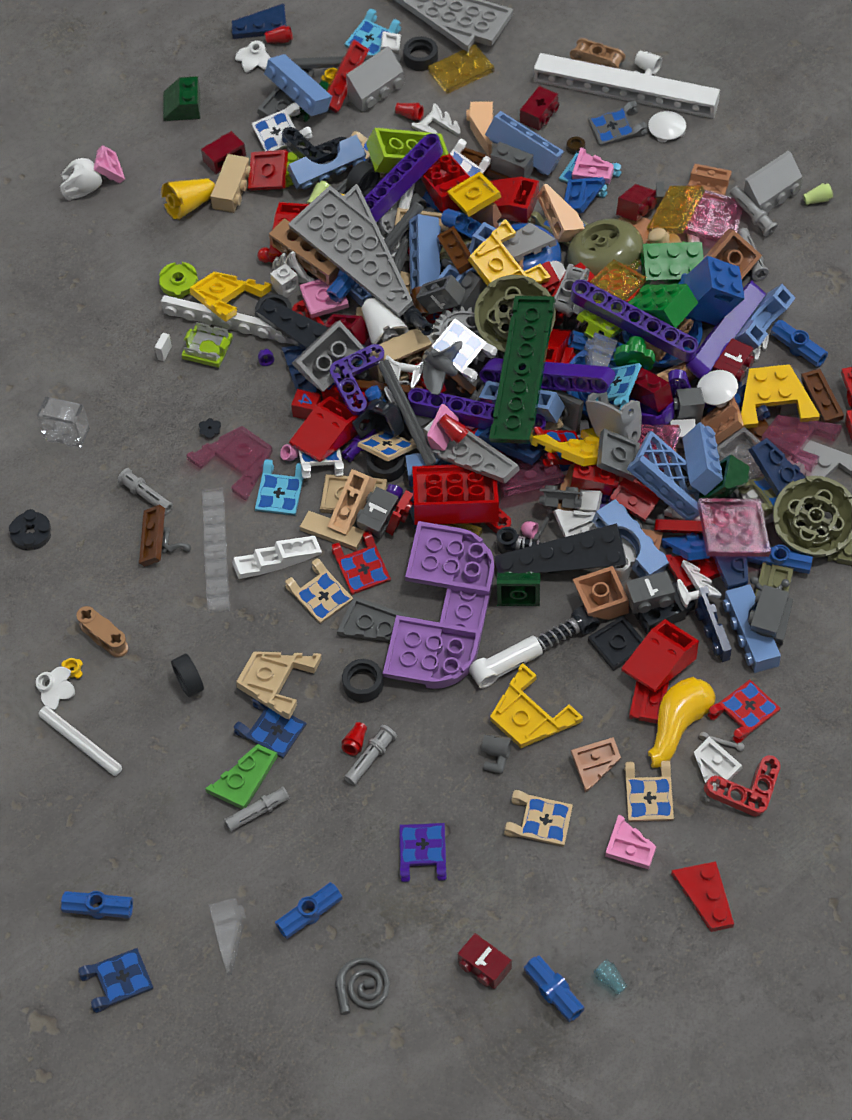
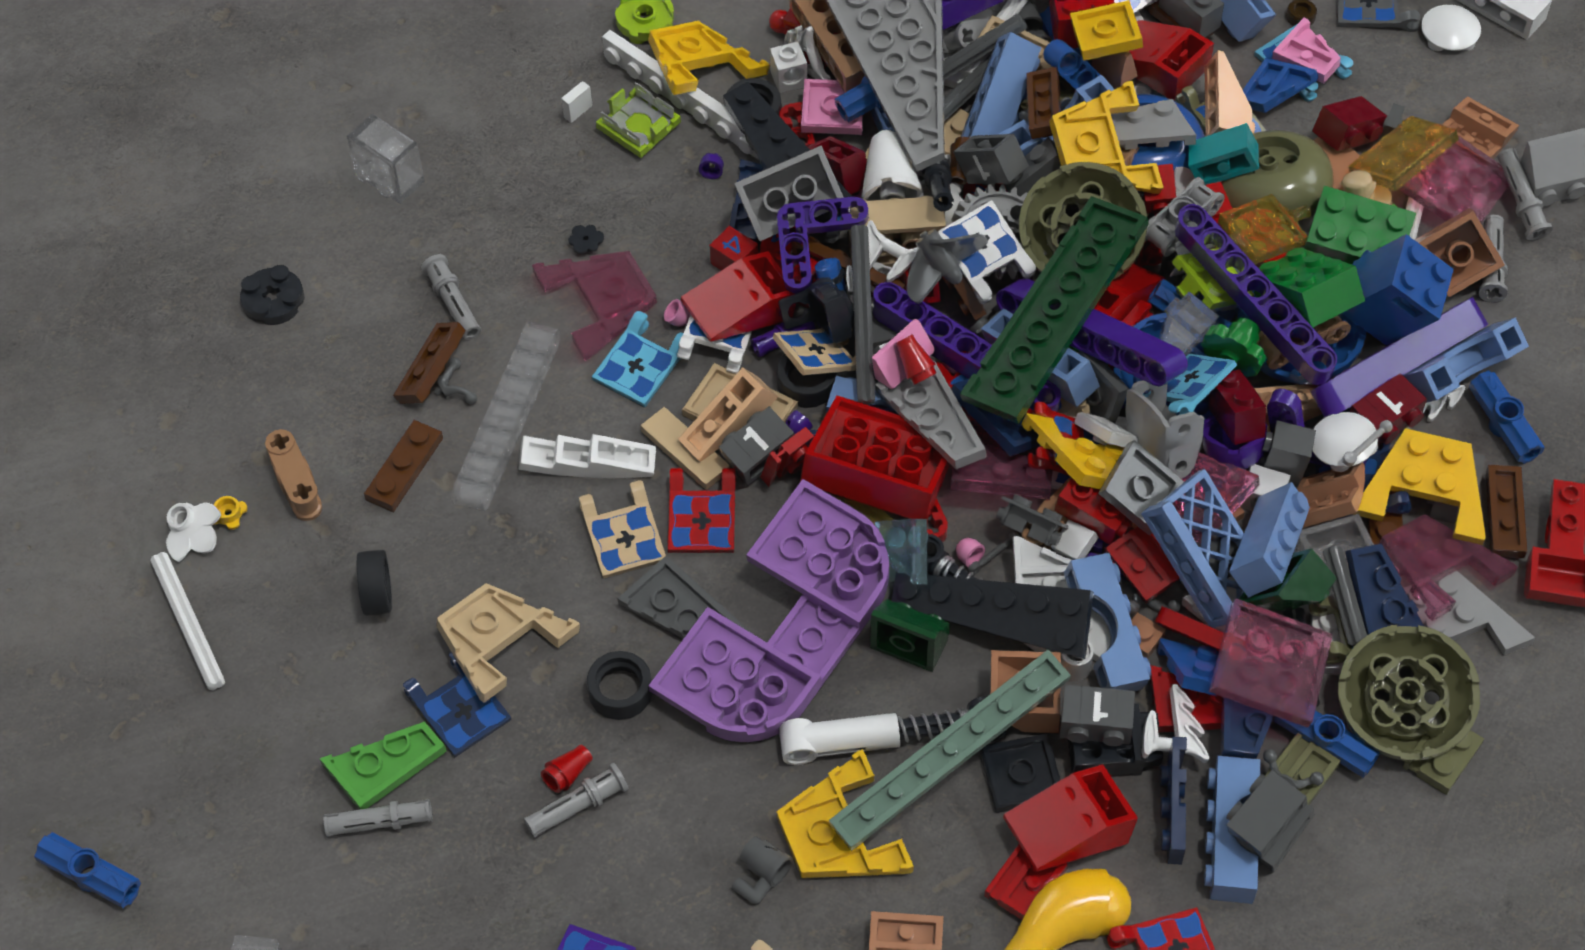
camera: 20 degrees right, 0 degrees up
(166, 602) = (403, 466): none -> reddish brown plate
(497, 538) = (906, 547): none -> clear light blue wing
(575, 245) = (1224, 154): none -> teal brick
(575, 643) = (949, 750): none -> sand green plate
(579, 431) = (1104, 430): none -> white plate
(727, 396) = (1351, 457): none -> light grey hinge
(758, 475) = (1345, 595): none -> dark grey axle

